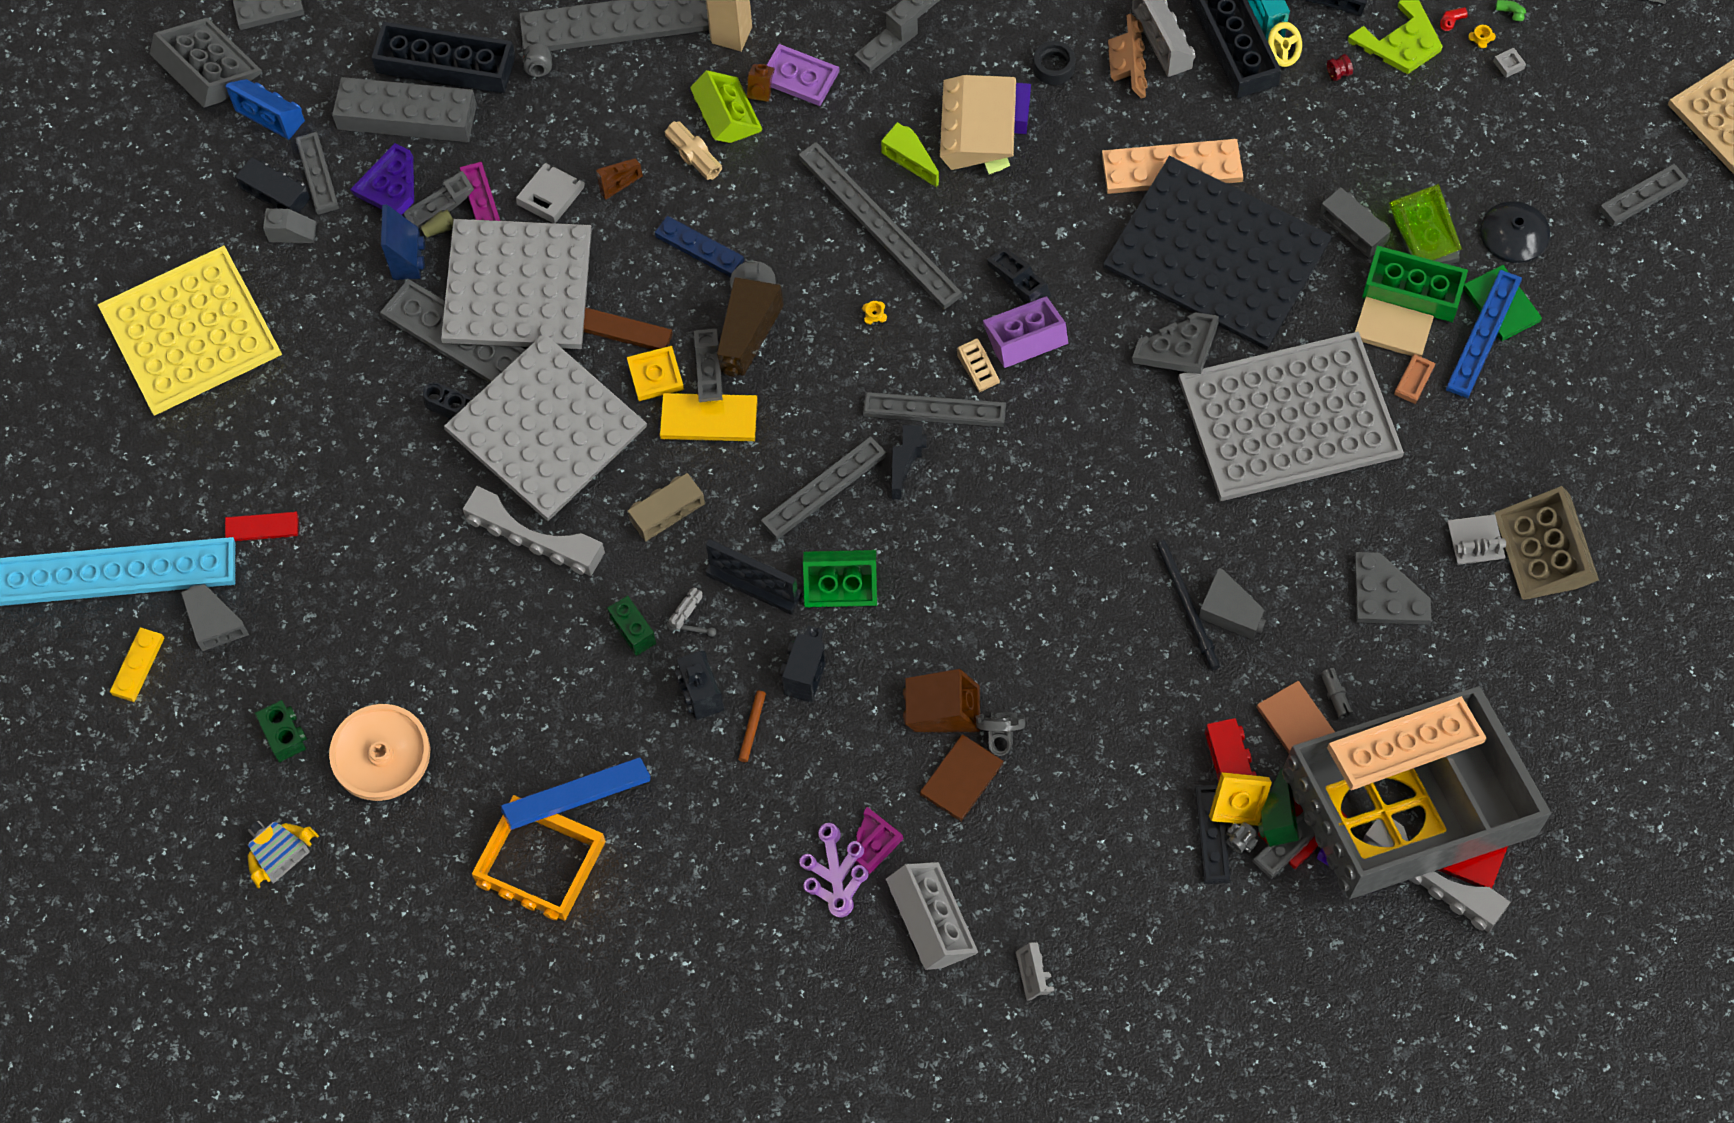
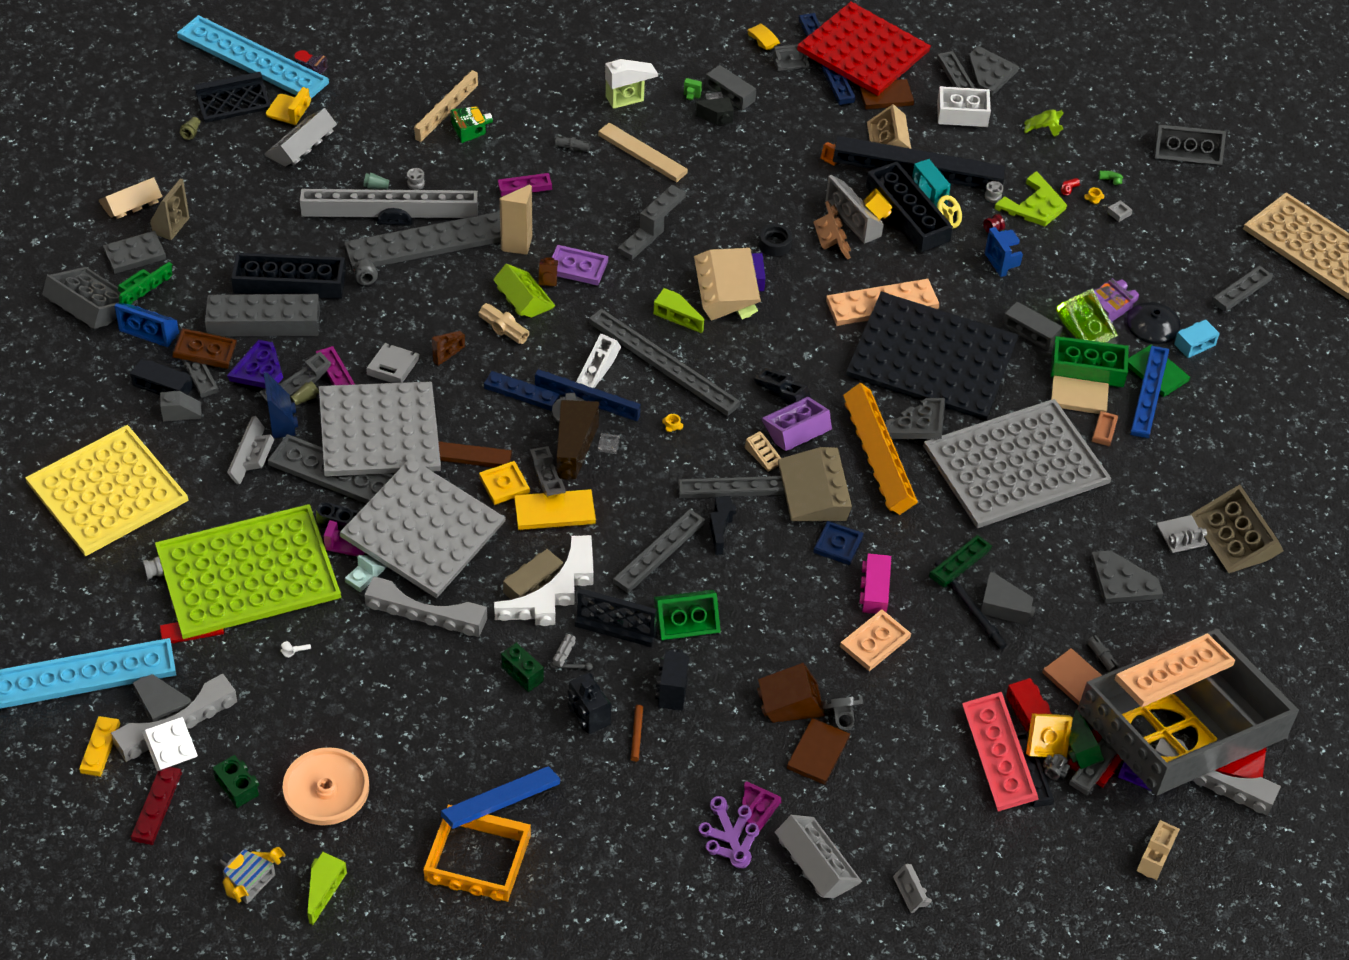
camera: 15 degrees left, 15 degrees down
(179, 662) = (213, 698): none -> light grey arch
(189, 747) = (156, 805): none -> dark red plate
(211, 676) = (169, 744): none -> white plate
(227, 442) = (153, 568): none -> light grey wheel
(266, 50) = (143, 282): none -> green bracket
(329, 148) = (204, 348): none -> reddish brown tile
(334, 458) = (247, 571): none -> lime plate
(360, 869) = (326, 876): none -> lime slope
(363, 296) = (251, 450): none -> light grey bracket
(367, 568) = (289, 650): none -> white hand
(437, 432) = (335, 543): none -> magenta bracket
(469, 476) = (364, 572): none -> light aqua slope
(694, 529) = (559, 591): none -> white arch
(783, 266) = (607, 401): none -> dark blue plate
(791, 331) = (608, 443): none -> clear tile
(799, 218) = (599, 361): none -> white slope
(1029, 421) = (815, 485): none -> dark tan slope
(1044, 501) = (838, 543): none -> dark blue tile
(1060, 640) = (875, 640): none -> light nougat plate
(1076, 564) = (875, 583): none -> dark pink brick
(1121, 379) = (880, 449): none -> light orange brick
(1178, 808) = (1000, 751): none -> coral plate
(1188, 545) = (960, 561): none -> dark green tile
(1192, 26) = (878, 204): none -> yellow slope
(1336, 107) = (999, 252): none -> blue panel
(1340, 962) = (1158, 850): none -> tan slope
(1351, 18) = (994, 191): none -> light grey wheel
(1468, 194) = (1116, 298): none -> medium lavender hips
(1563, 263) = (1196, 338): none -> medium azure brick

